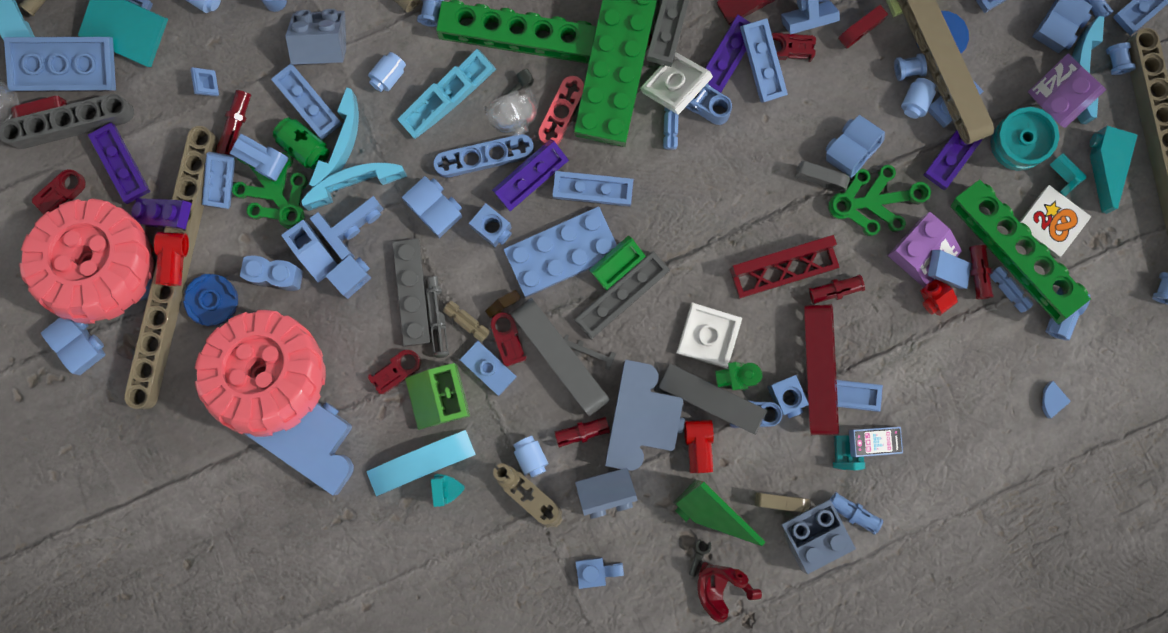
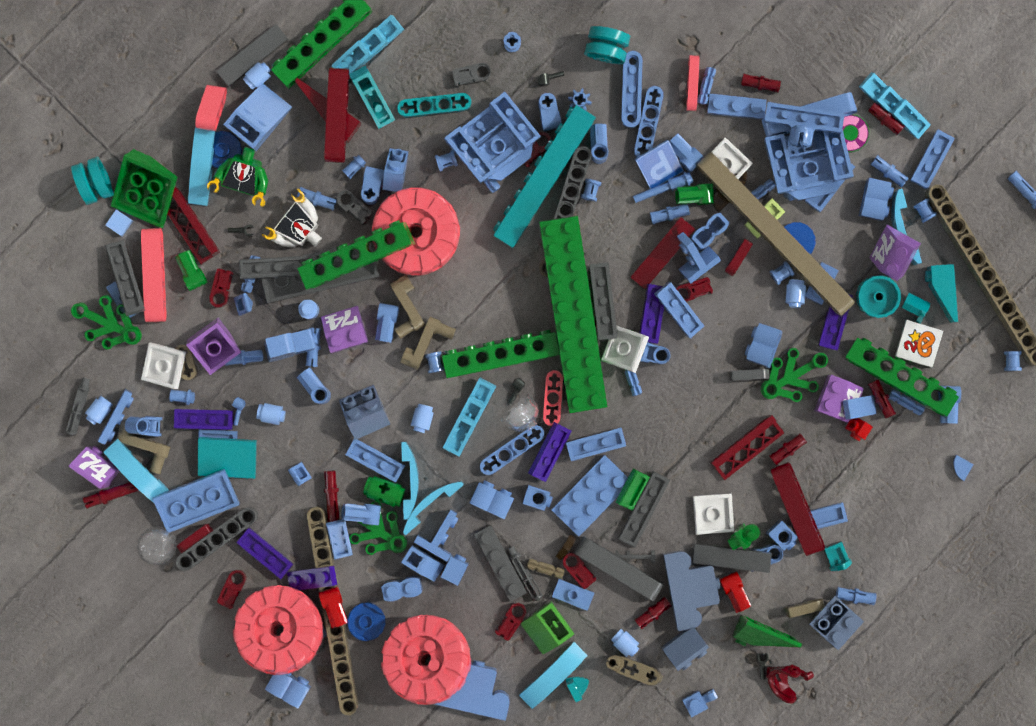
camera: 25 degrees left, 5 degrees up
(875, 441) = (852, 543): tile -> none

